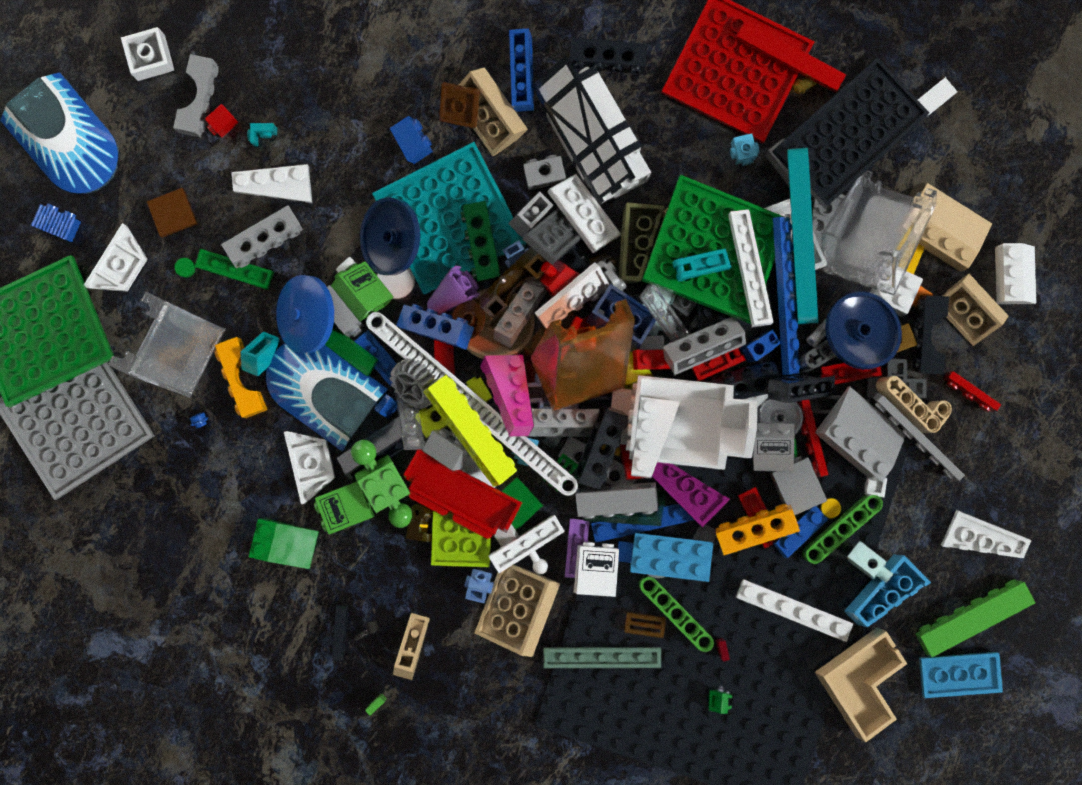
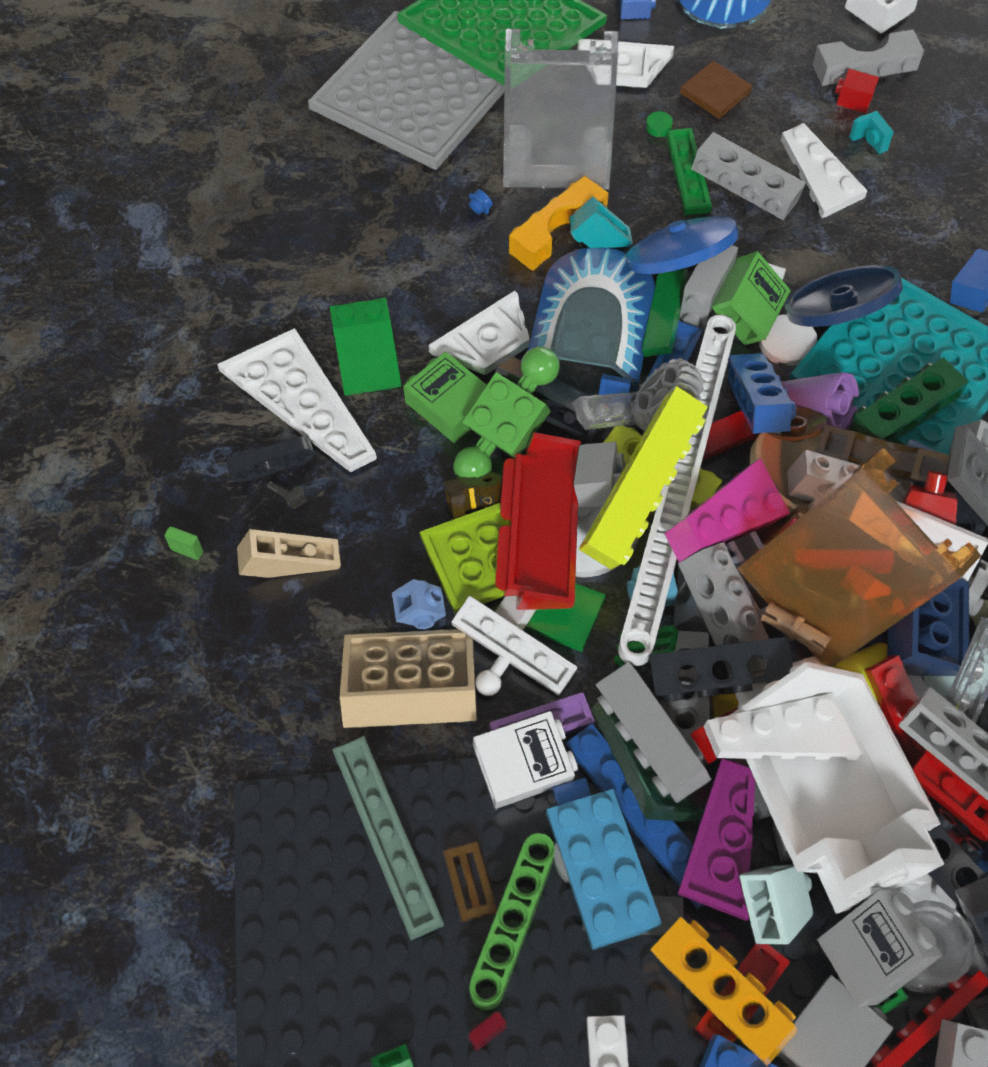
camera: 65 degrees right, 25 degrees down
(291, 599) = (295, 389): none -> white wing
(600, 398) = (796, 628): none -> medium nougat pin
(729, 482) = (777, 902): none -> light aqua torso

